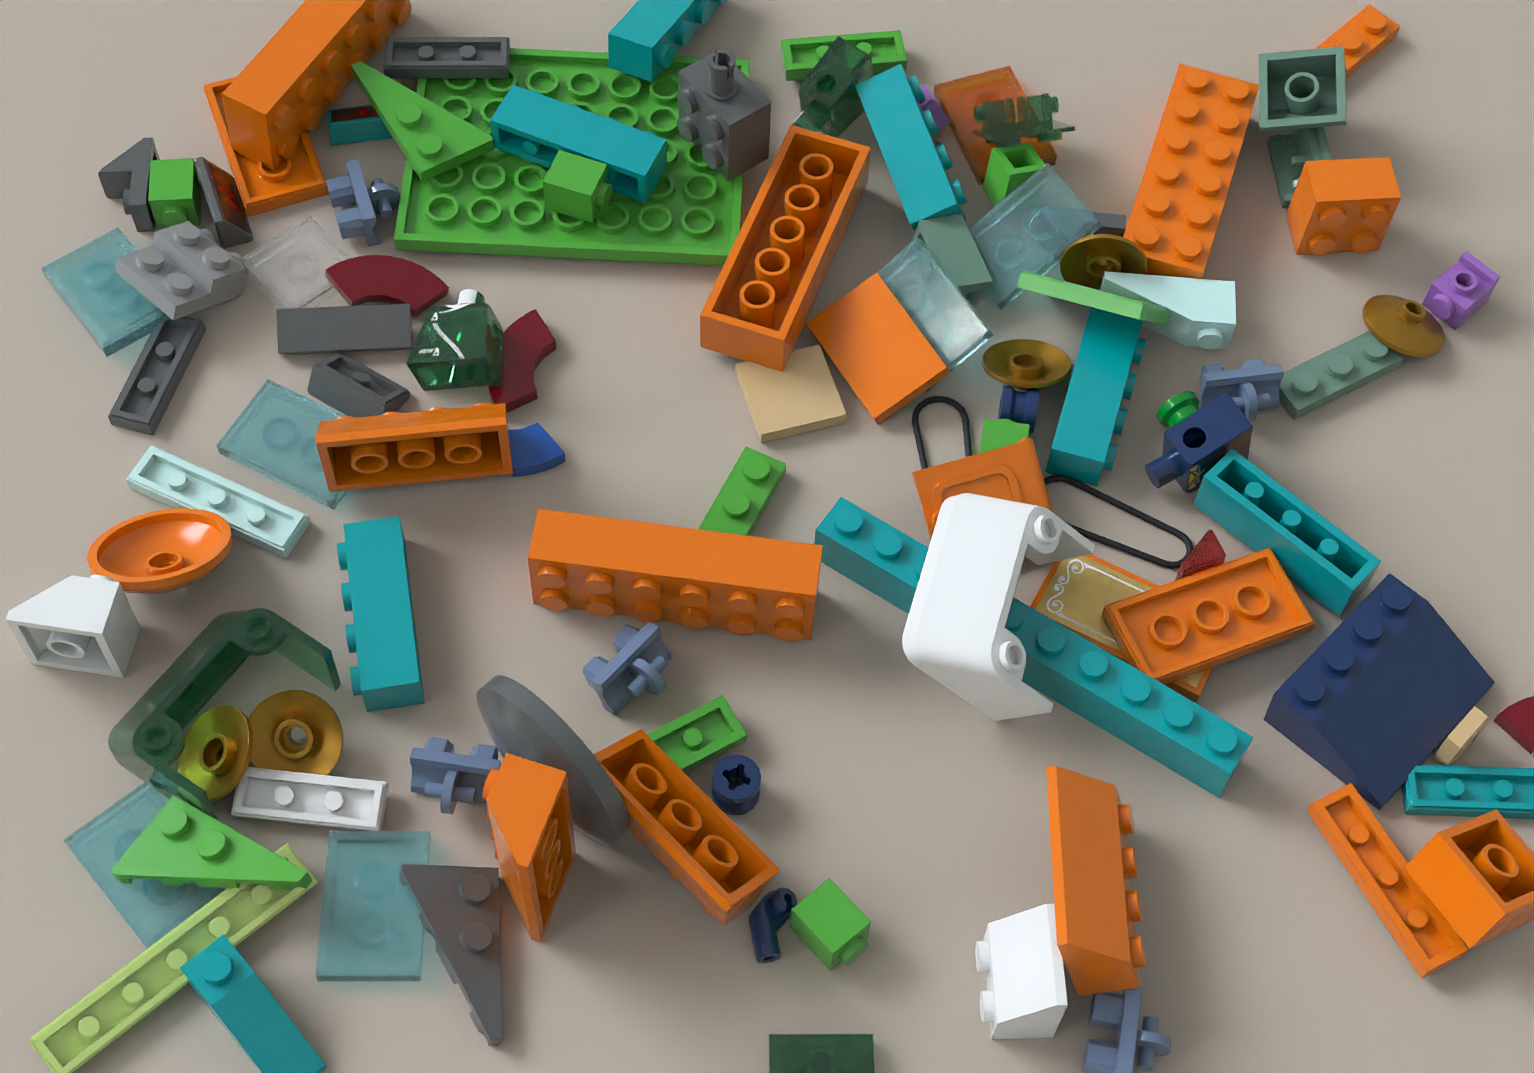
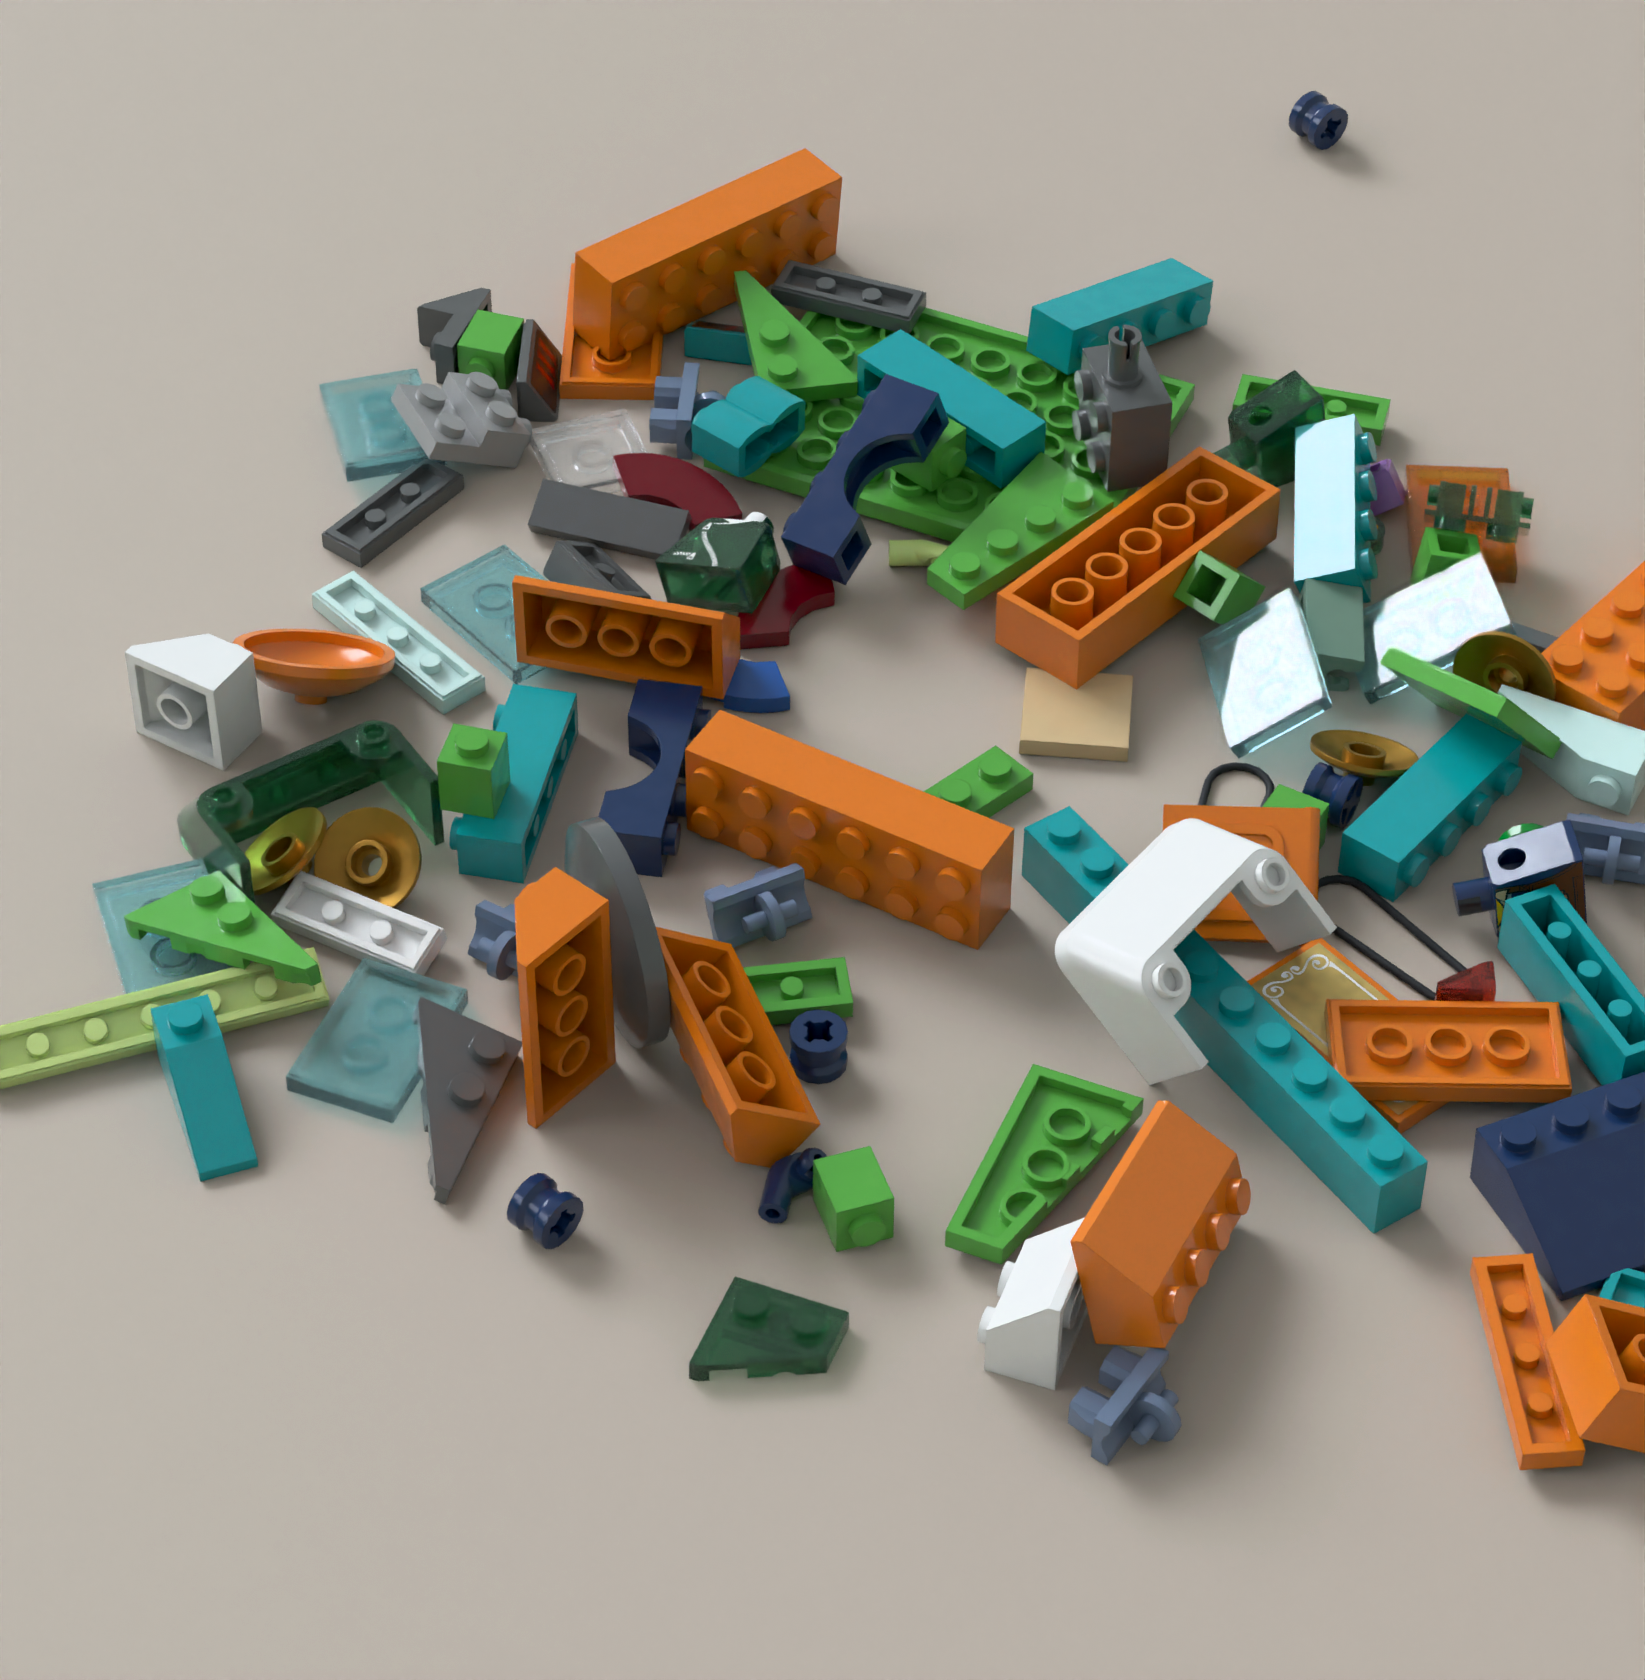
camera: 25 degrees right, 15 degrees down
(356, 632) = (473, 771): none -> bright green brick
(424, 209) = (748, 426): none -> teal brick
(497, 618) = (645, 815): none -> dark blue arch
(557, 185) = (894, 428): none -> dark blue arch
(591, 1031) = (545, 1210): none -> dark blue wheel
(608, 279) = (914, 552): none -> yellowish green arm
(680, 239) = (1017, 531): none -> bright green wing
(856, 250) = (1218, 589): none -> bright green brick
(877, 348) = (1196, 693): orange tile -> none
(950, 826) = (1036, 1158): none -> bright green wing

